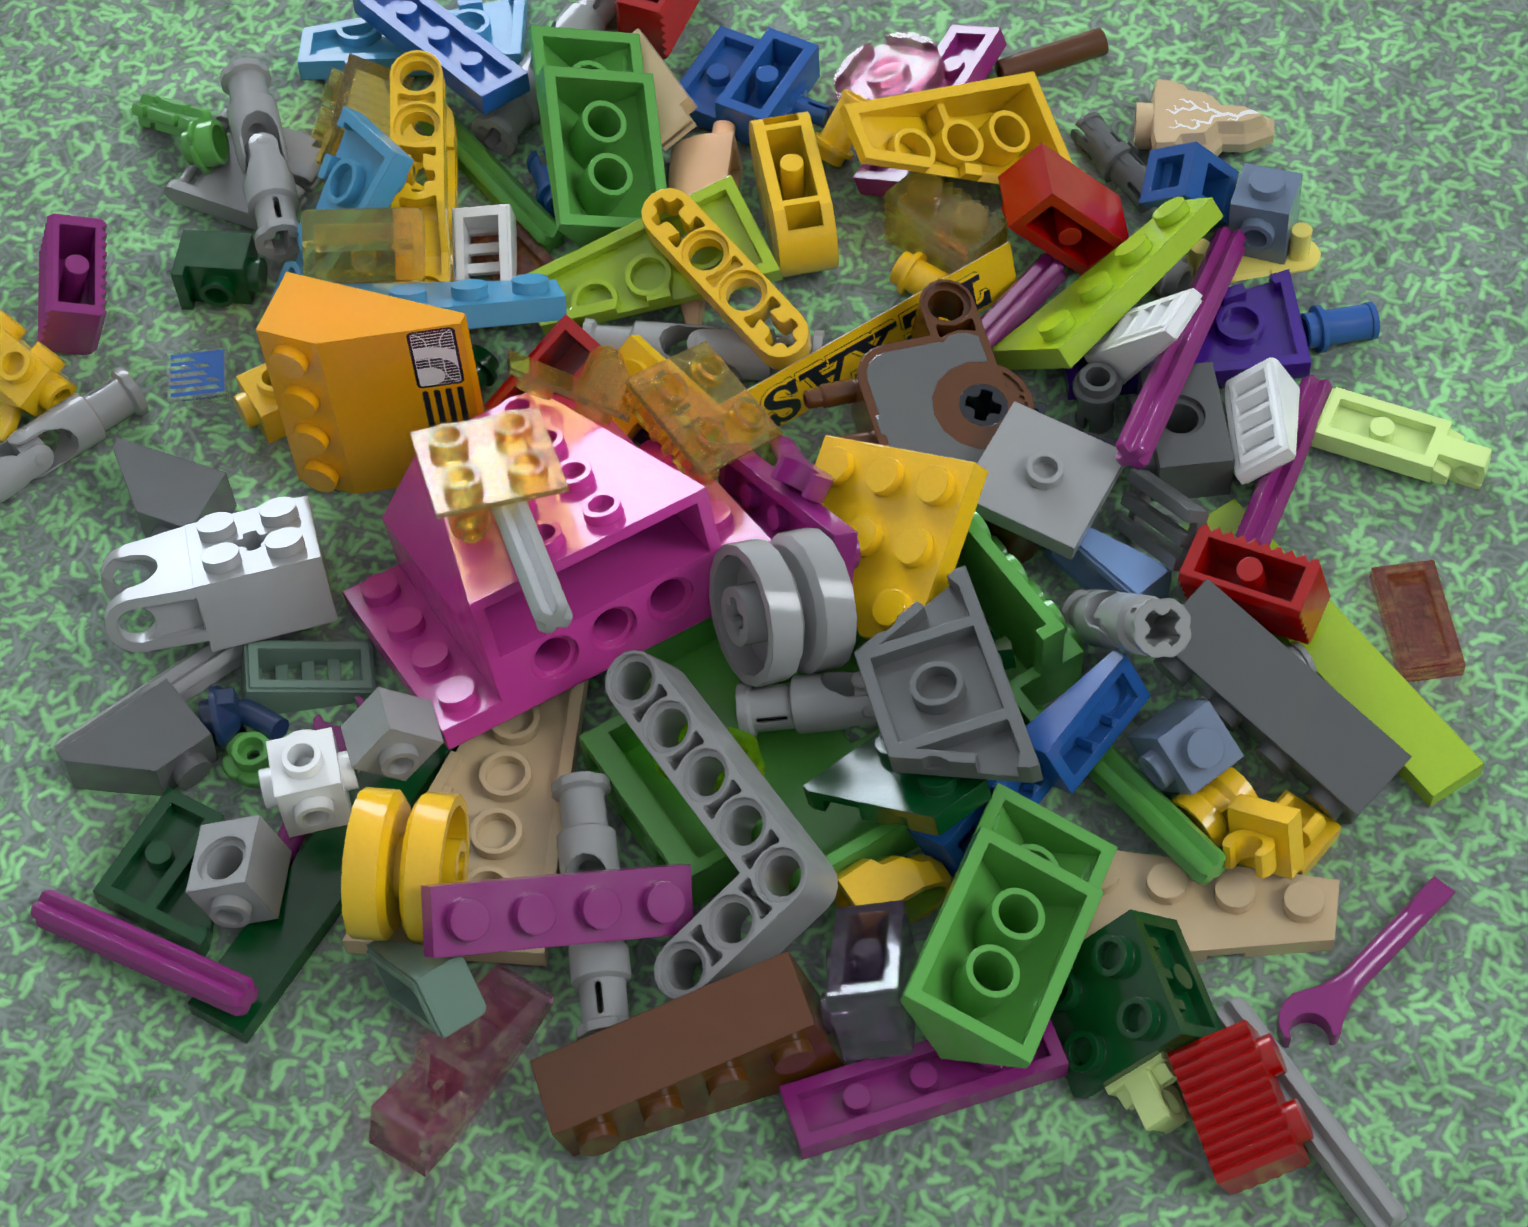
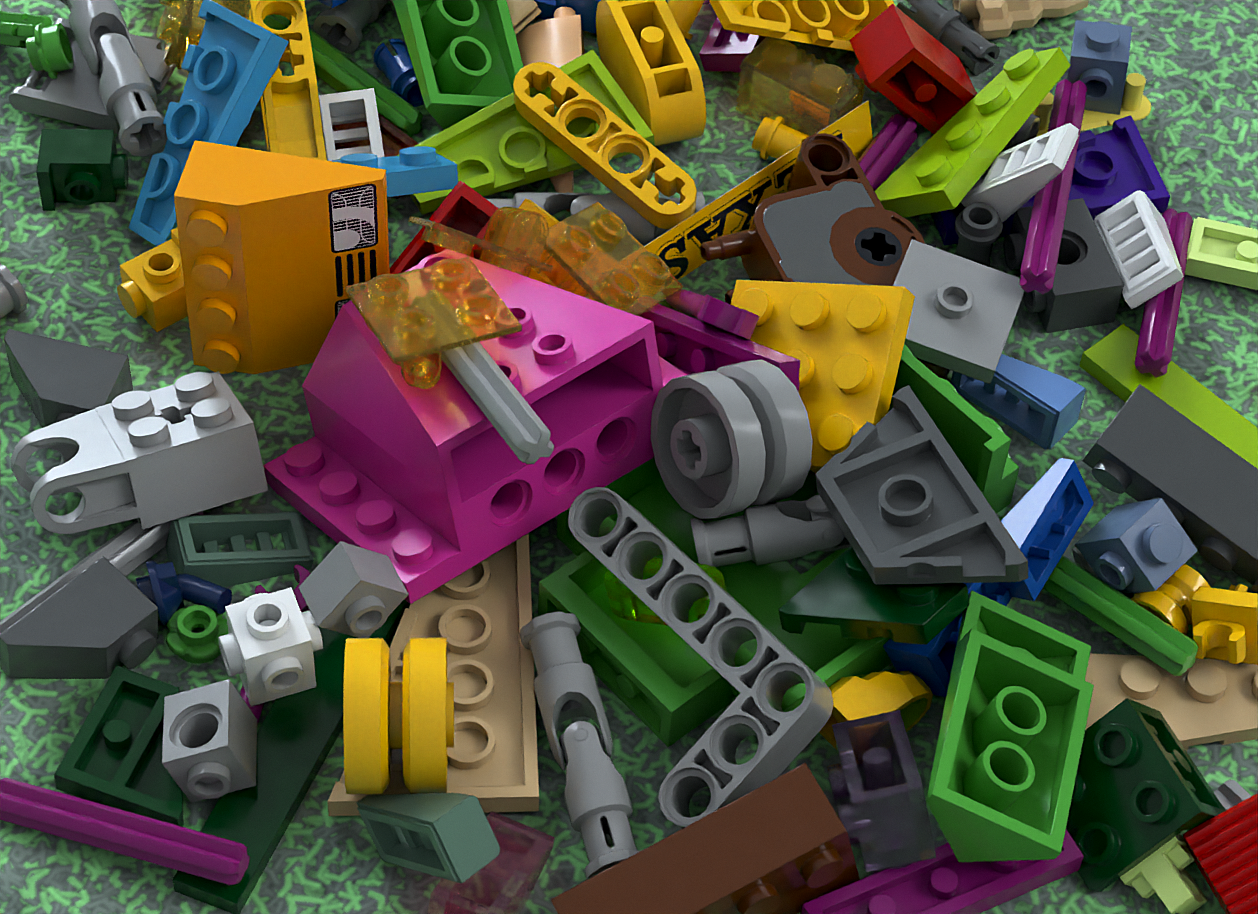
camera: 15 degrees left, 5 degrees down
(199, 379) = (74, 274): tile -> none
(364, 245) = (246, 119): clear yellow slope -> none
(555, 910) = (558, 744): magenta plate -> none
(1128, 621) = (1078, 426): light grey piece -> none
(1150, 486) = (1037, 335): dark grey tile -> none
(1189, 173) = (1018, 29): blue brick -> none
(1273, 587) = (1193, 386): red brick -> none
(1340, 325) = (1188, 163): blue pin -> none

